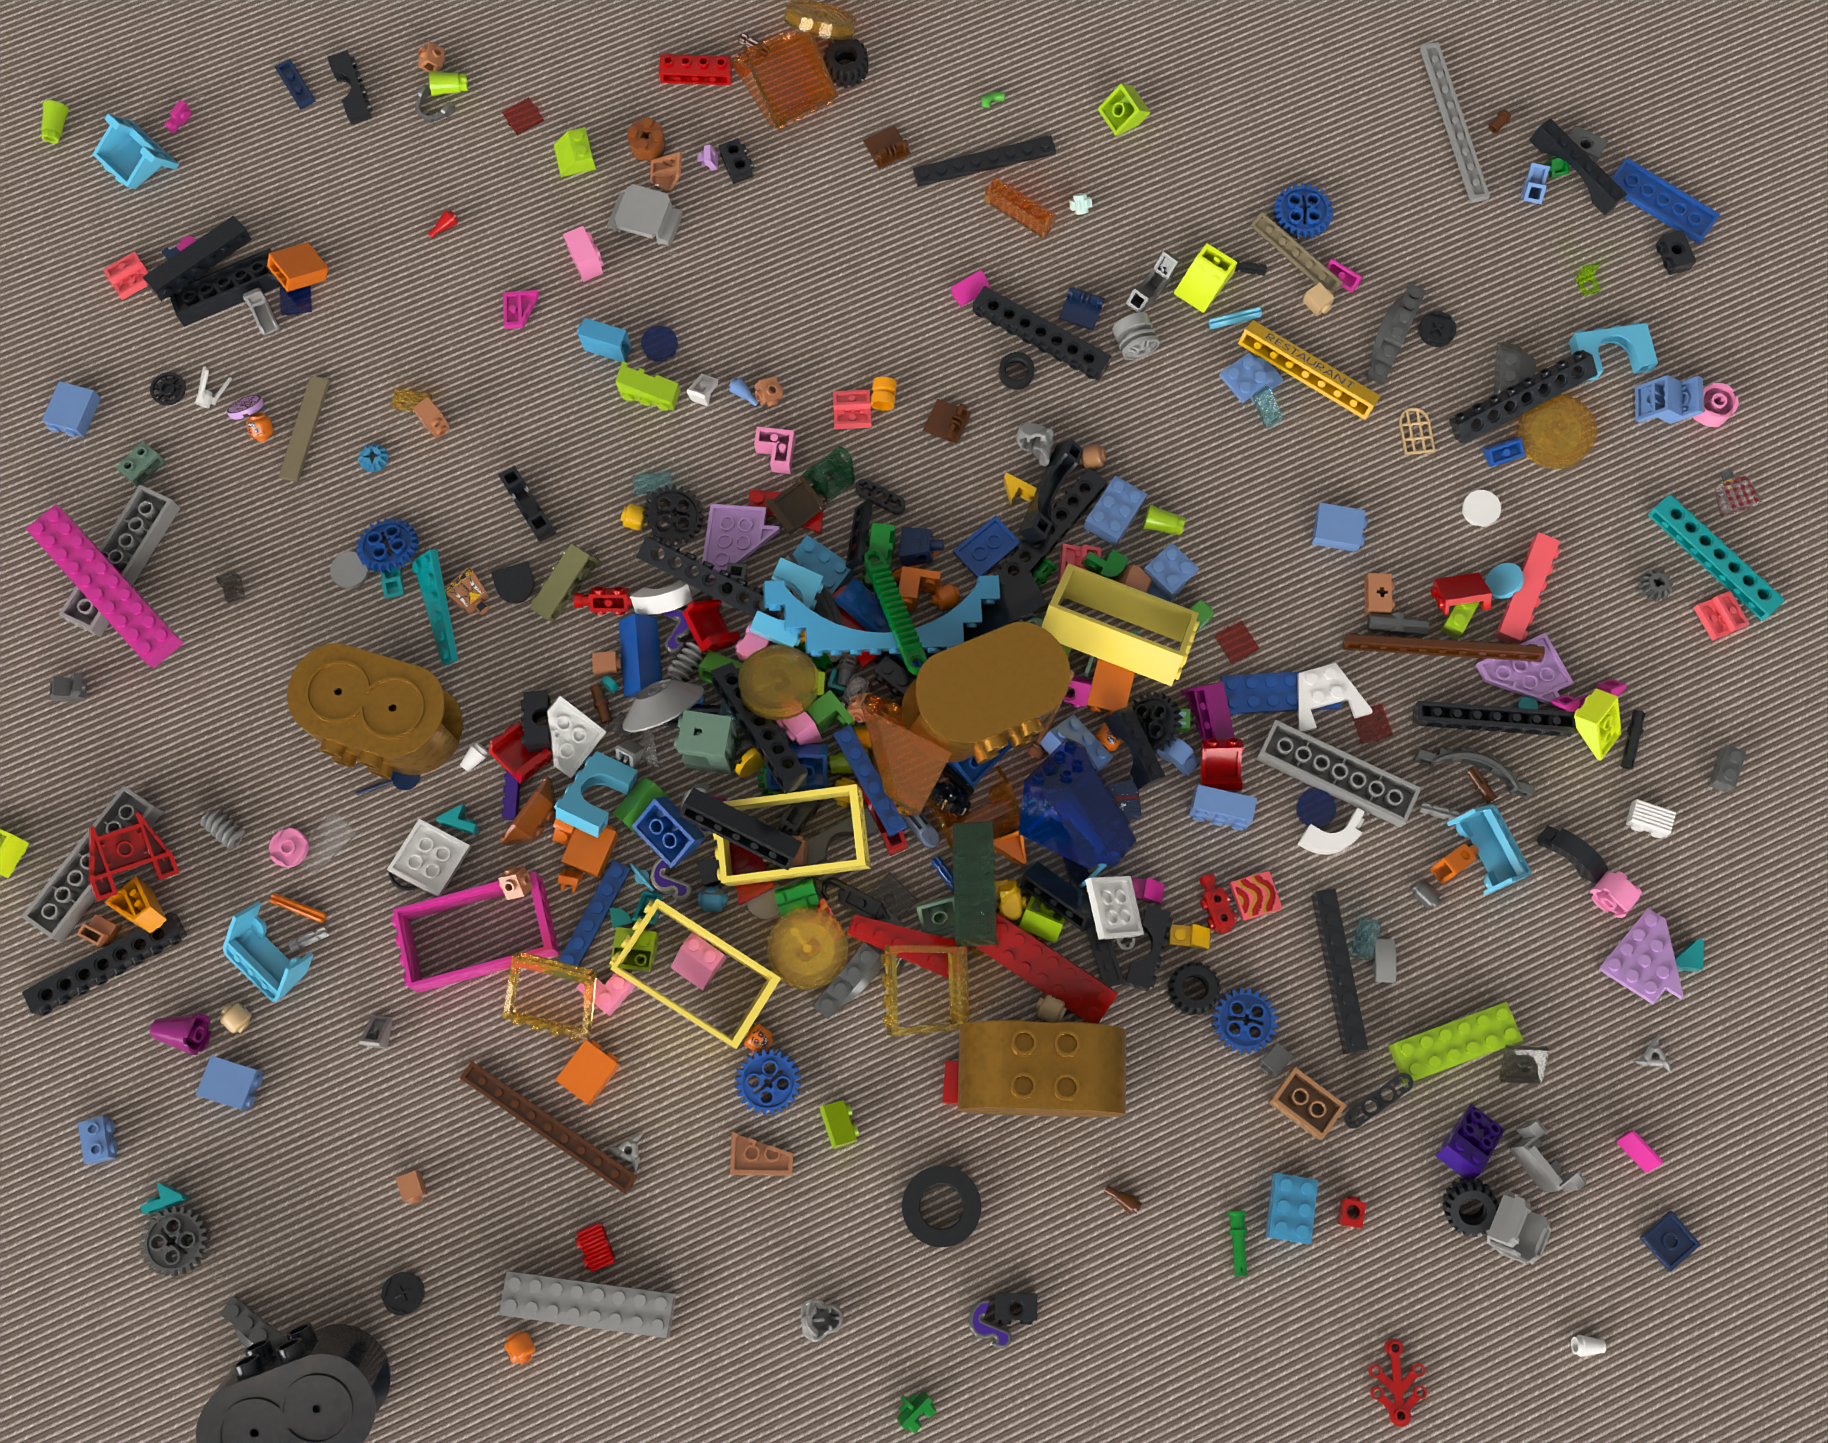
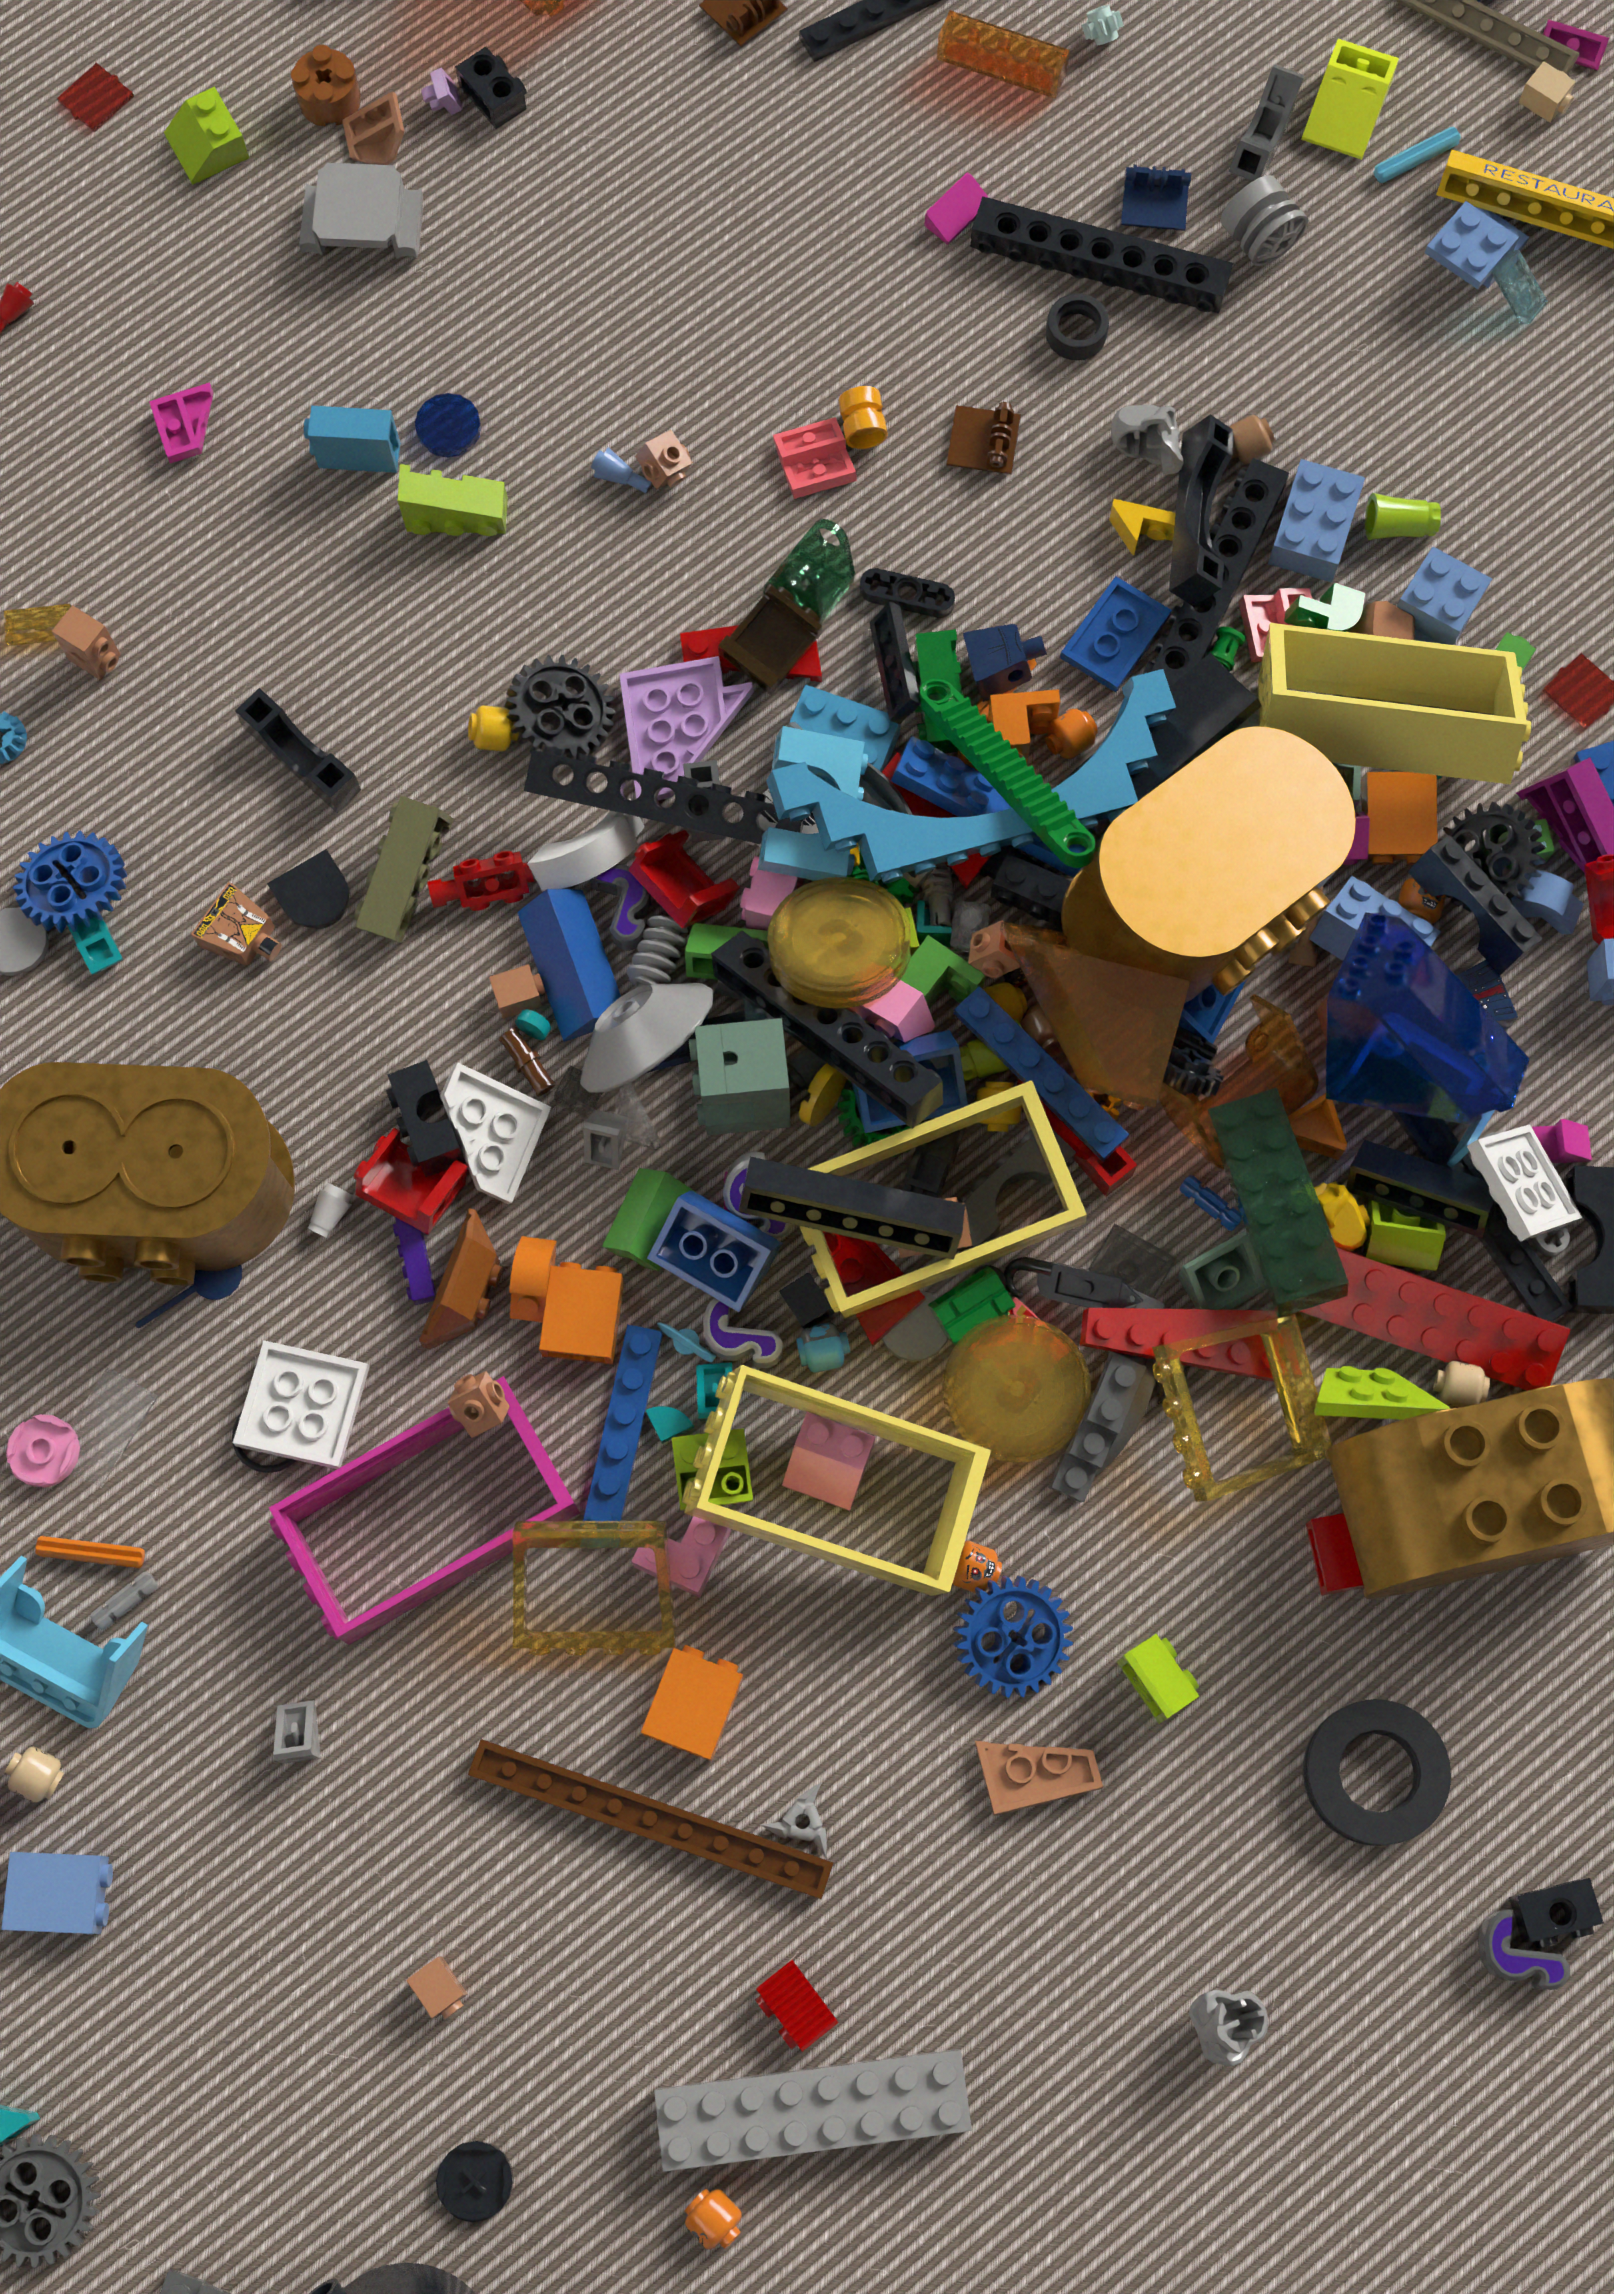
camera: 15 degrees left, 0 degrees up
(432, 588) = (177, 944): teal wing -> none
(454, 819) = (325, 1326): teal slope -> none
(571, 878) = (562, 1374): orange tile -> none
(584, 253) = (274, 301): bright pink brick -> none
(597, 771) = (561, 1177): medium azure arch -> none
(648, 483) = (502, 664): clear light blue plate -> none
(702, 389) = (547, 485): white slope -> none
(779, 444) = (706, 543): bright pink brick -> none
(913, 1408) = (1435, 2136): green hips -> none
(923, 829) = (1152, 1136): sand blue arm -> none
(997, 1001) = (1372, 1395): none -> lime wing
(1251, 268) = (1420, 67): black axle -> none

